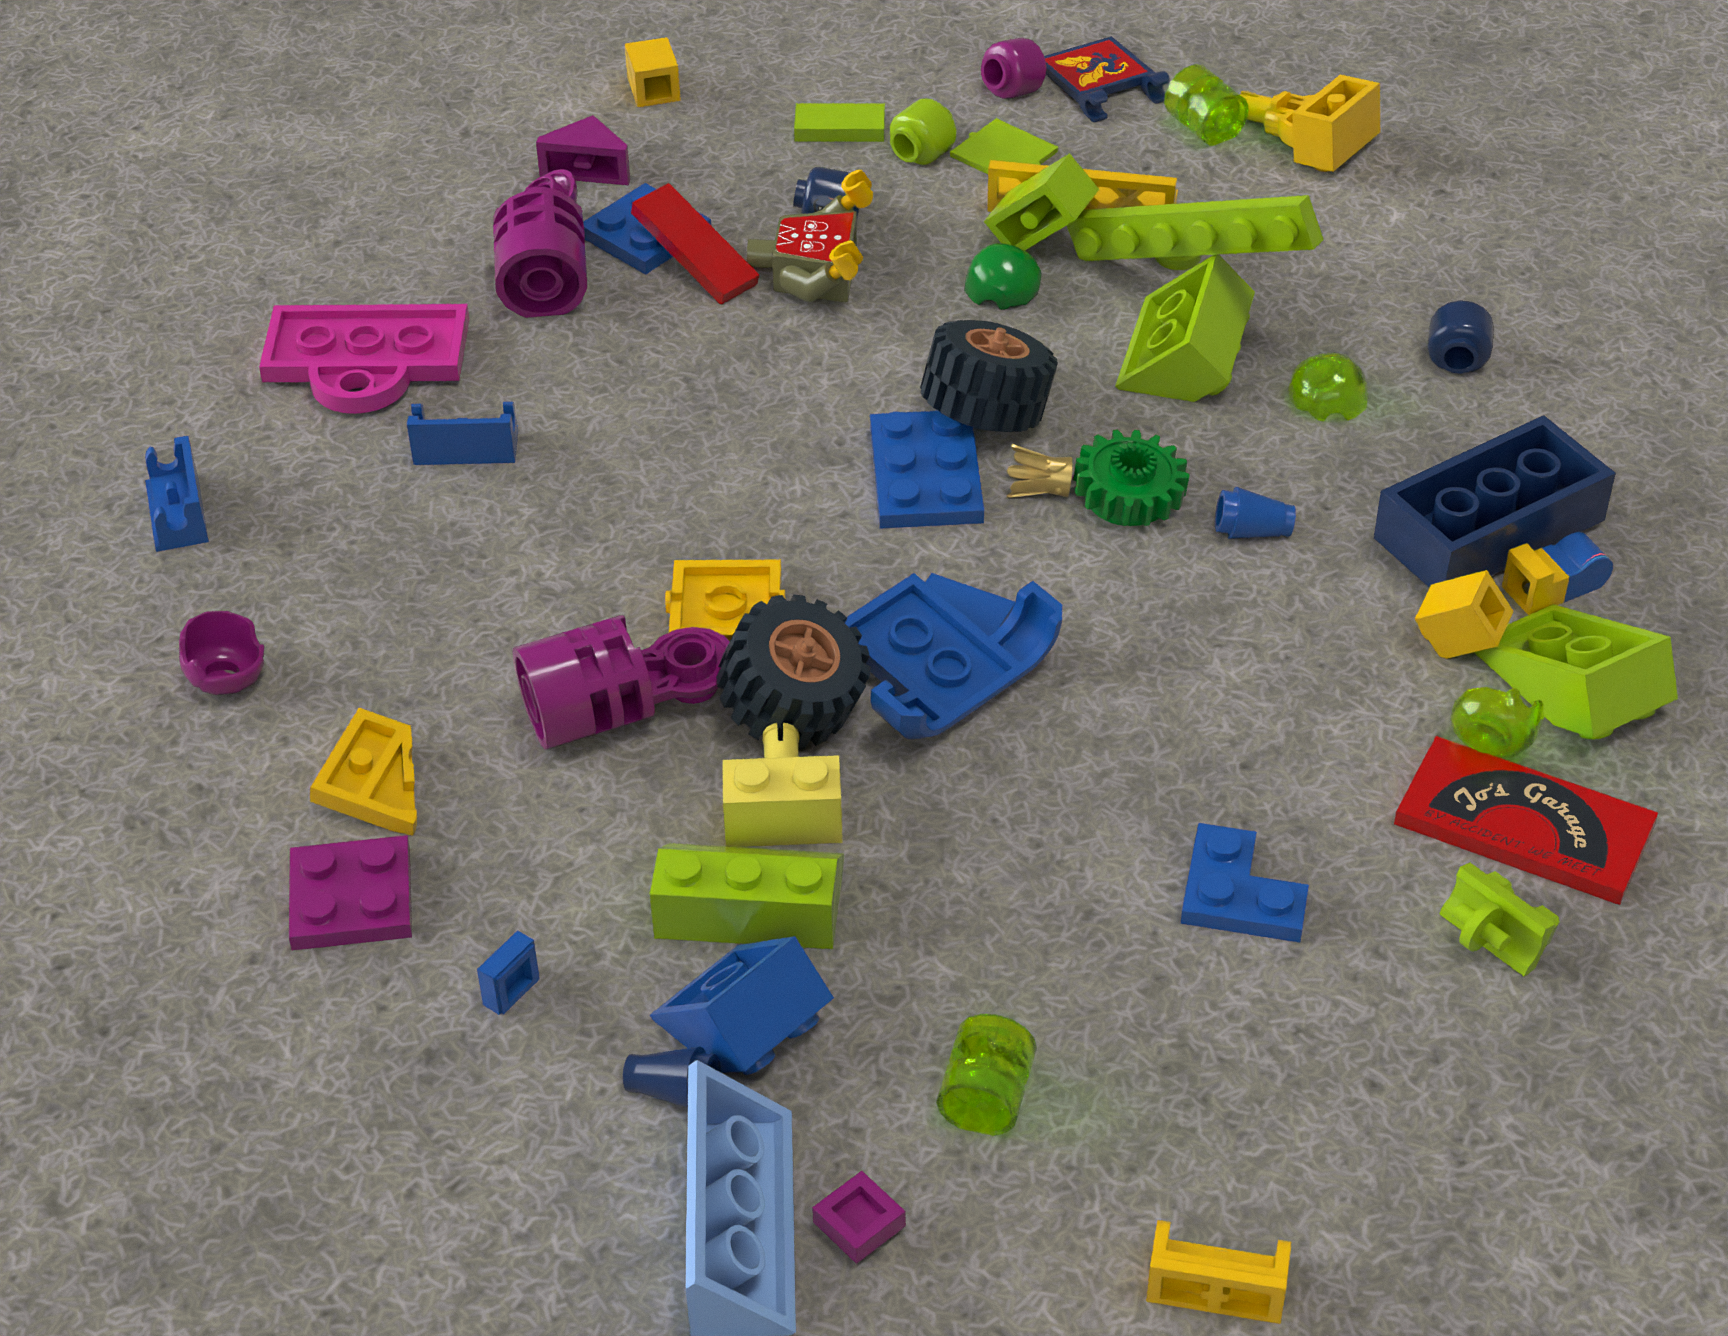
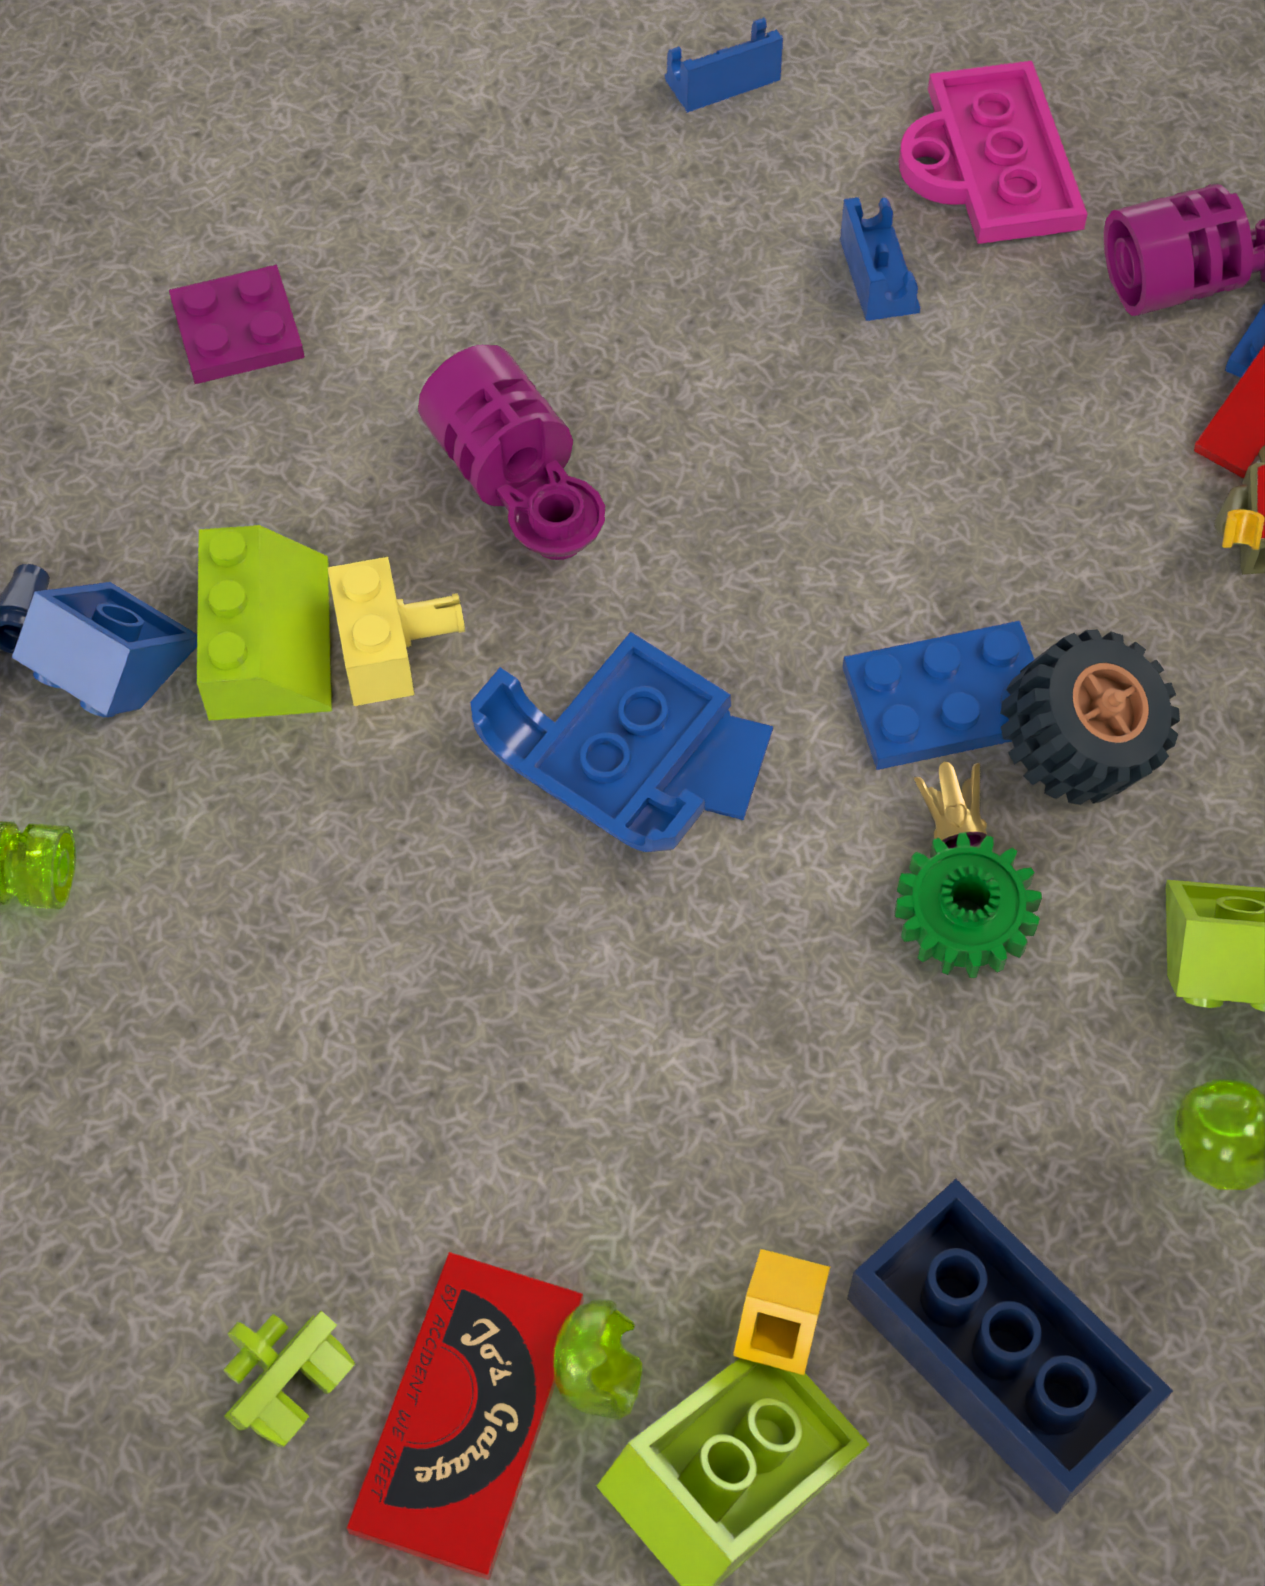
camera: 80 degrees right, 15 degrees up
(220, 643) = (504, 141): magenta hair -> none
(371, 774) = (379, 301): yellow wing -> none
(508, 973) = (131, 455): blue tile -> none
(720, 592) = (667, 538): yellow plate -> none
(793, 668) = (538, 599): black wheel -> none
(1228, 899) = (310, 1075): blue plate -> none
(1252, 515) = (940, 1053): blue cone -> none
(1555, 572) = (915, 1440): leg -> none

